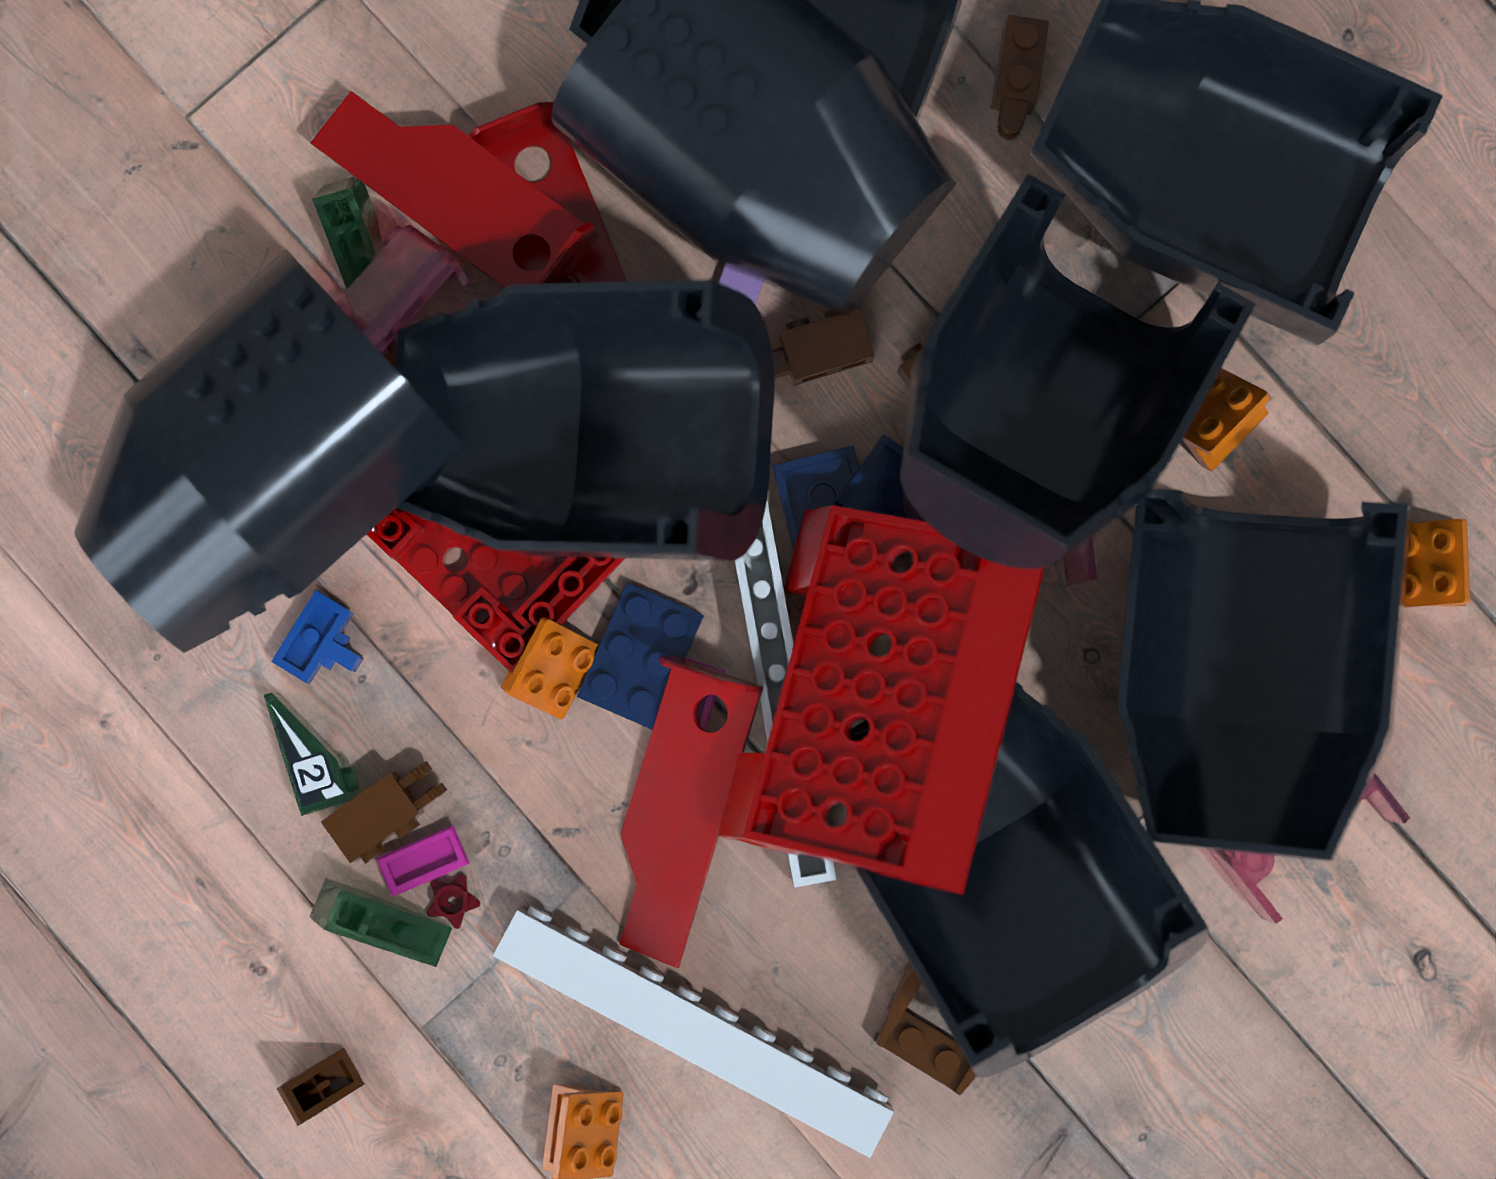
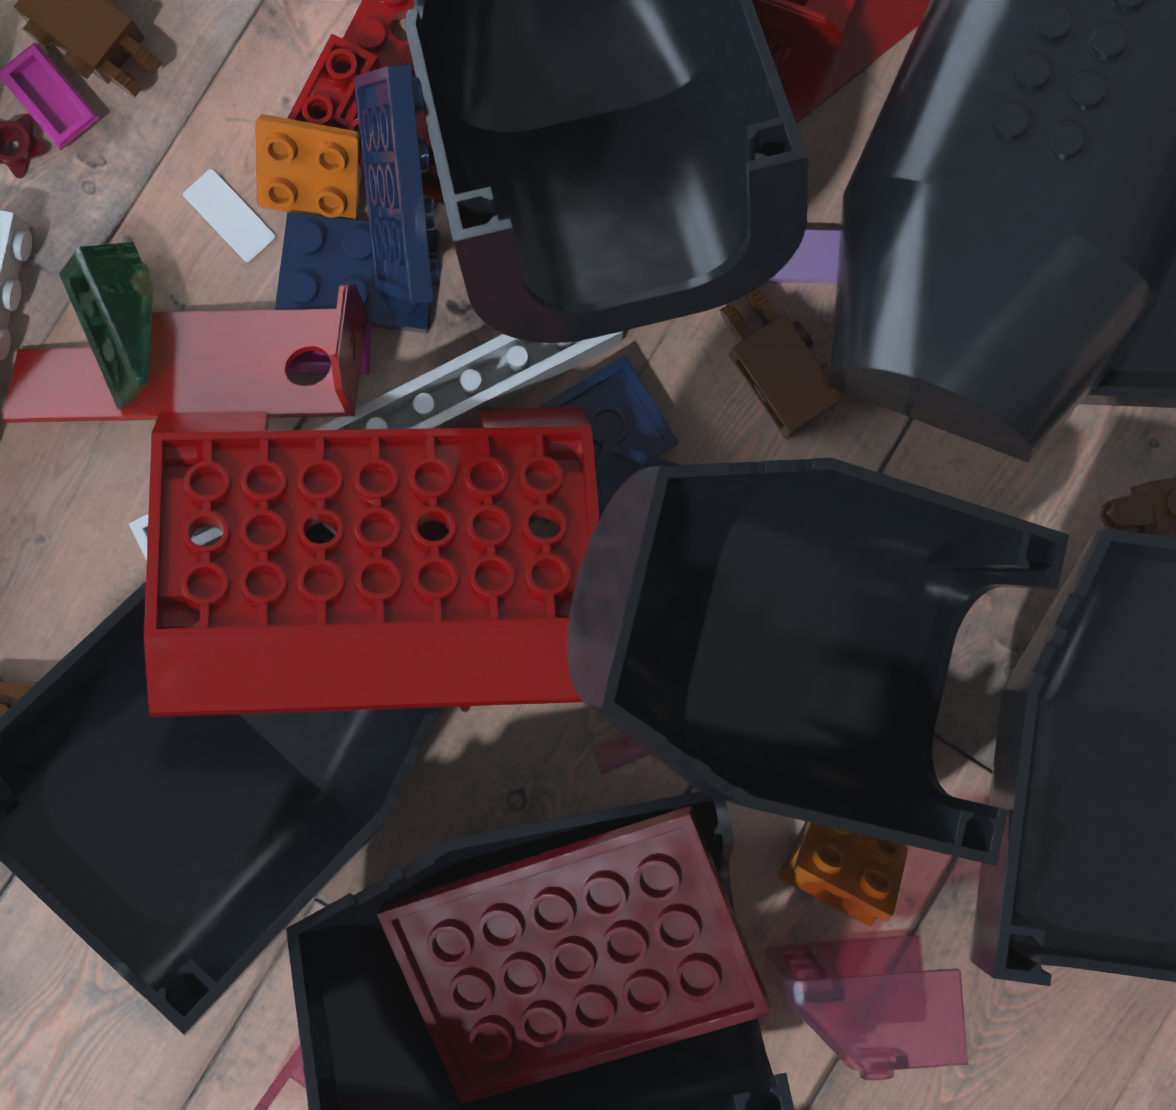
camera: 70 degrees right, 0 degrees up
(561, 745) = (229, 215): none -> white sticker
(607, 596) = (393, 183): none -> dark blue plate
(621, 852) = (114, 307): none -> clear green slope
(1231, 637) = (576, 956): none -> dark red plate
(1326, 425) = (874, 1002): none -> clear pink windscreen

